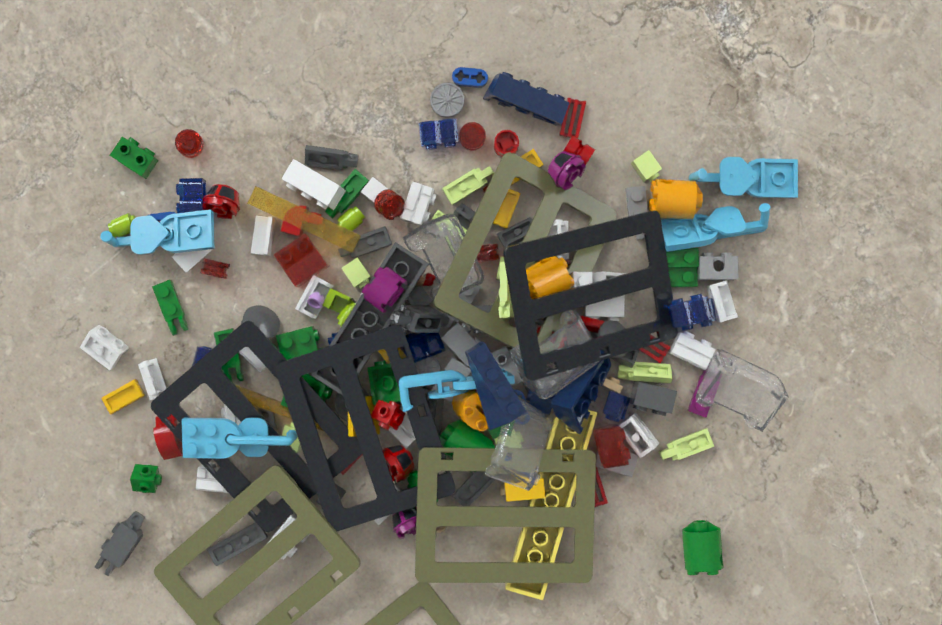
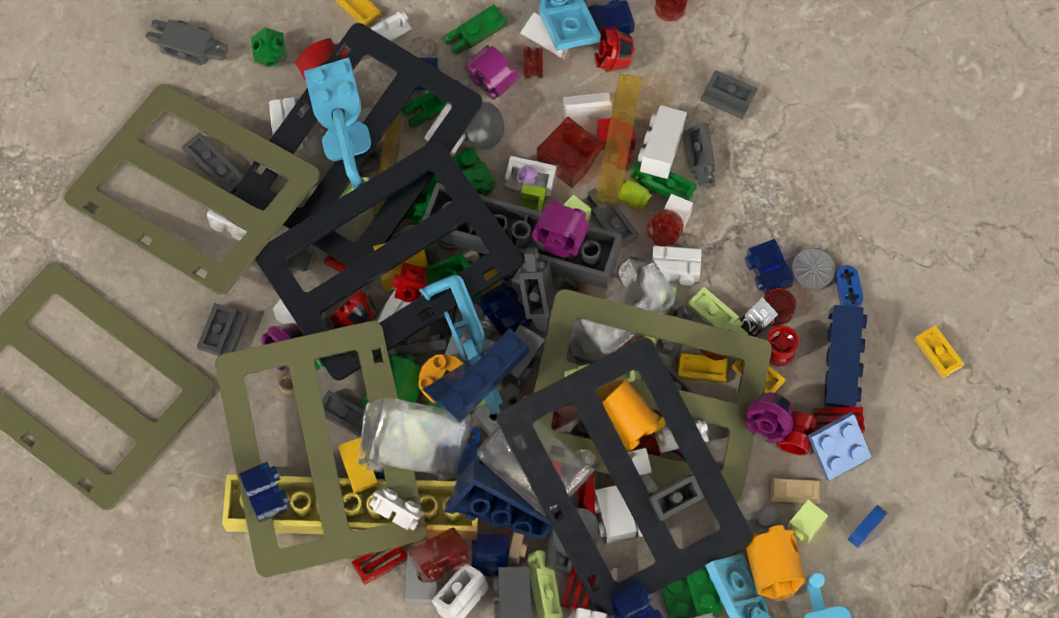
camera: 75 degrees right, 20 degrees down
(216, 303) = (492, 71): none -> magenta brick
(283, 120) = (729, 94): none -> dark grey plate
(382, 566) = (222, 330): none -> dark grey plate
(479, 155) = (758, 317): none -> sticker
(533, 566) = (264, 492): none -> clear blue brick
(539, 26) = (939, 351): none -> yellow plate
(575, 462) = (389, 502): none -> white hinge
(596, 124) = (839, 446): none -> plate
(616, 260) = (675, 496): none -> dark grey slope
(617, 167) = (794, 490): none -> tan tile
(660, 123) = (867, 526): none -> blue beam

